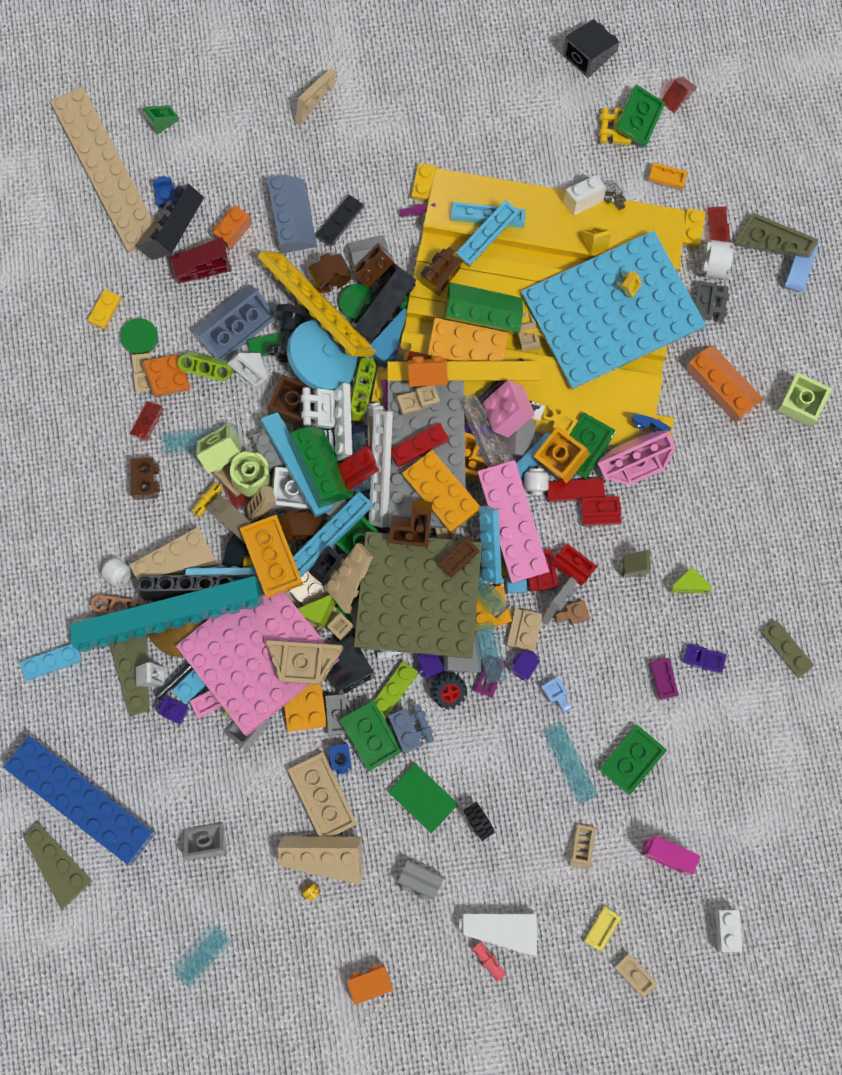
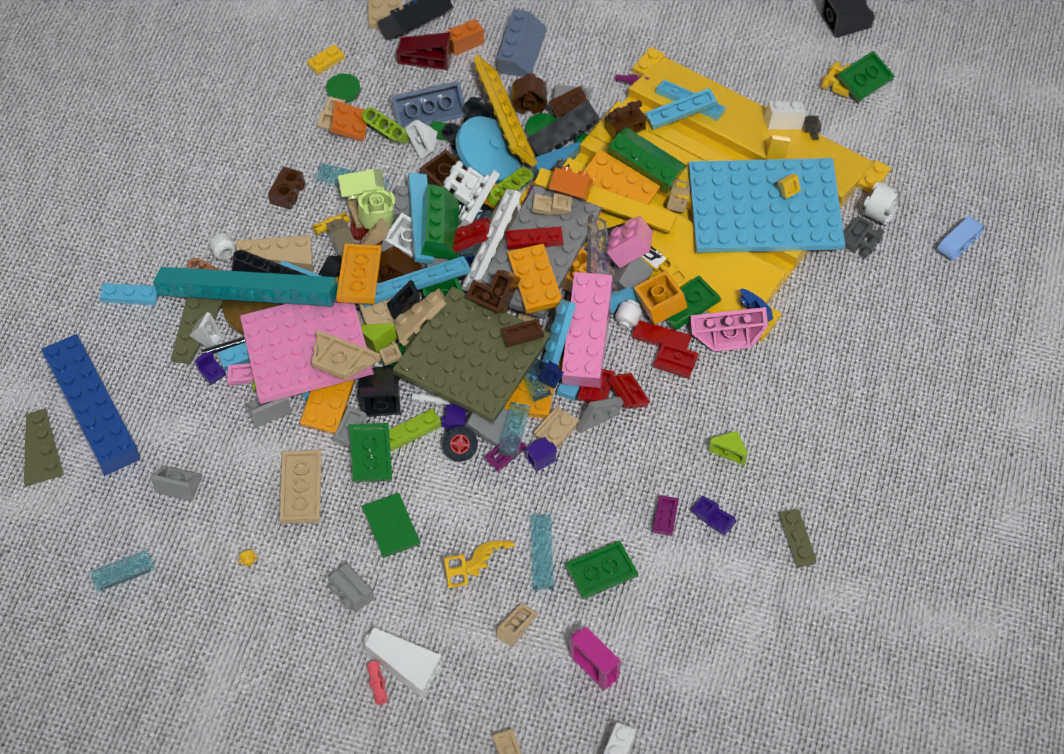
camera: 25 degrees right, 20 degrees down
(147, 421) = (314, 150): clear red slope -> none
(324, 856) = (279, 532): tan wedge -> none
(337, 750) = (334, 454): blue brick -> none
(340, 221) = (560, 65): black plate -> none
(369, 984) = (256, 652): orange brick -> none
(405, 731) = (403, 462): sand blue brick -> none
(479, 821) = (430, 558): black tyre -> none
(503, 586) = (550, 374): none -> clear blue bracket
(520, 797) = (477, 562): none -> yellow piece
(555, 692) = (558, 486): light blue plate -> none
(574, 612) = (611, 431): medium nougat plate -> none
(602, 929) = (498, 701): light yellow tile -> none
(635, 564) = (685, 410): olive slope -> none
(667, 176) = (869, 130): light orange plate -> none
(678, 93) = (910, 73): clear red slope -> none
(718, 224) = (900, 178): clear red slope -> none
(724, 383) = (842, 302): orange slope -> none
(774, 237) = (945, 205): olive wing -> none
(804, 399) = (911, 339): yellowish green brick -> none

